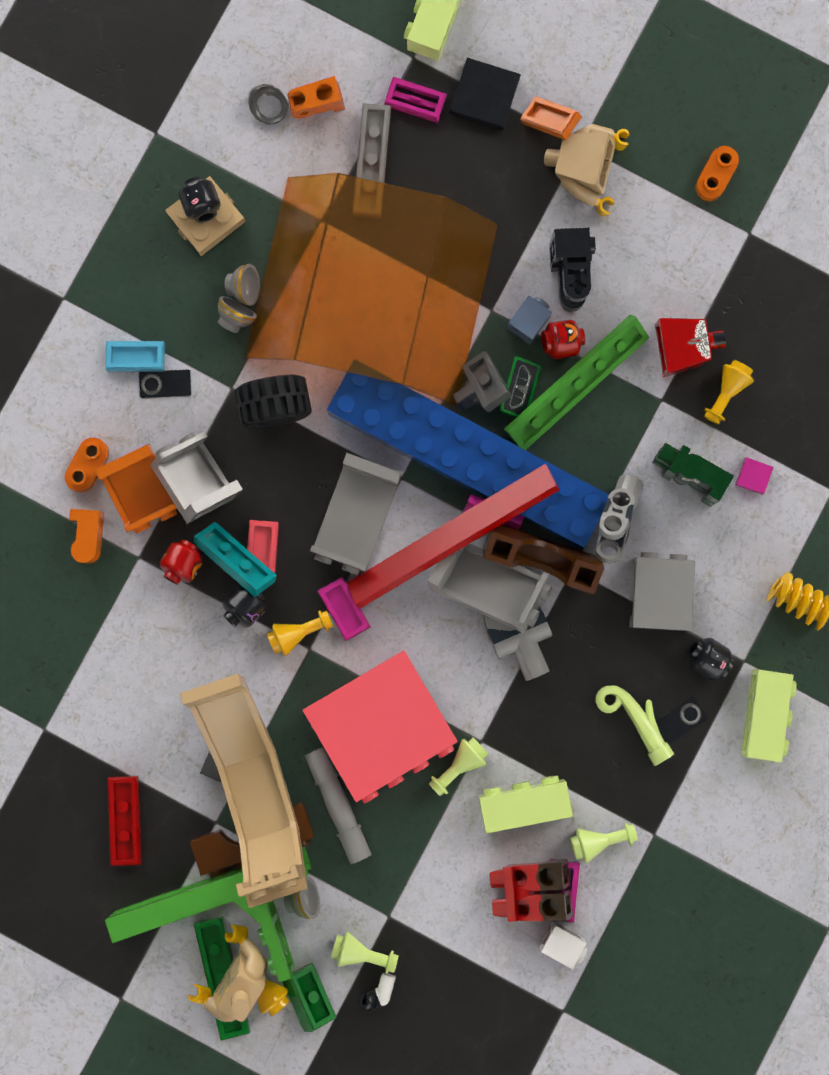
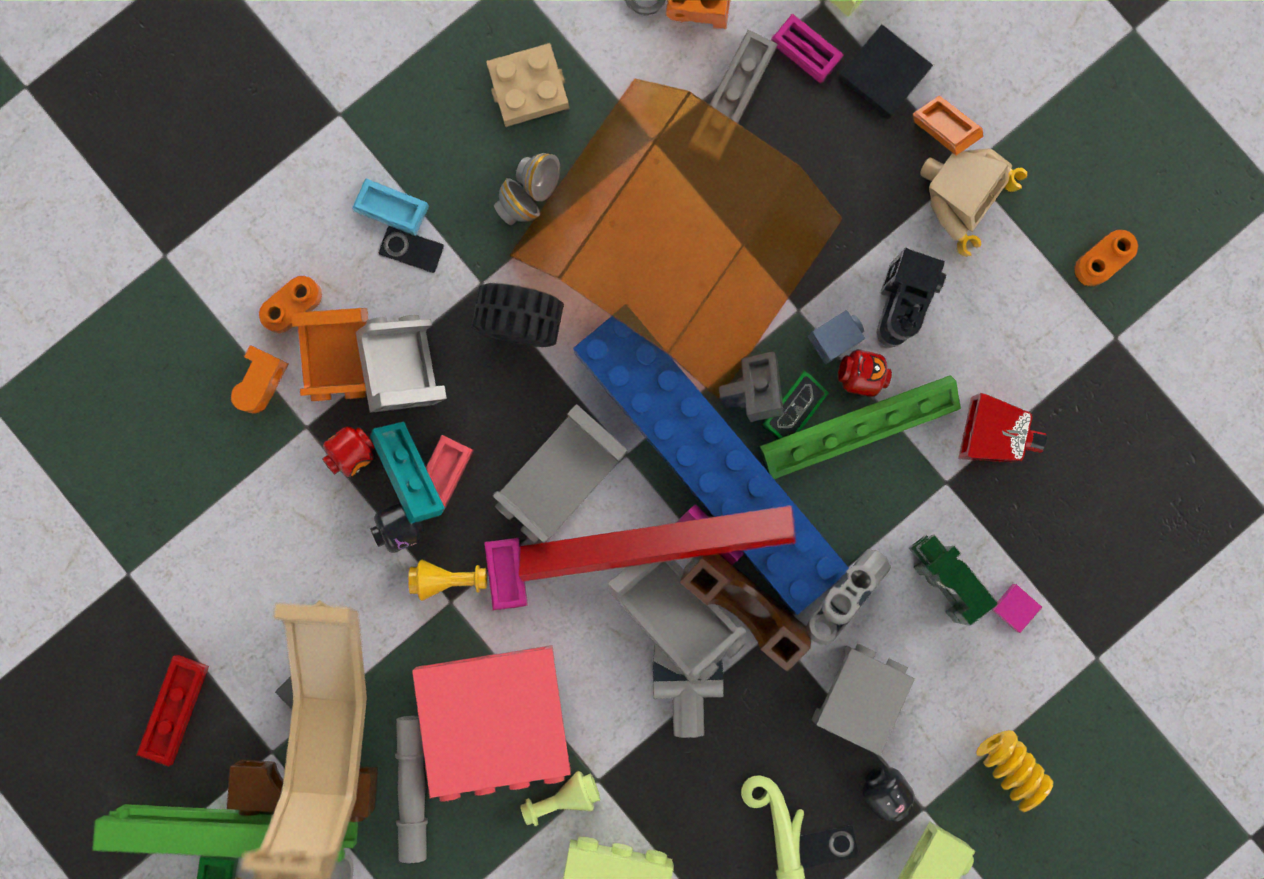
camera: 20 degrees right, 0 degrees up
(199, 199) = (526, 62): black head -> none
(734, 380) = (1037, 493): yellow piece -> none

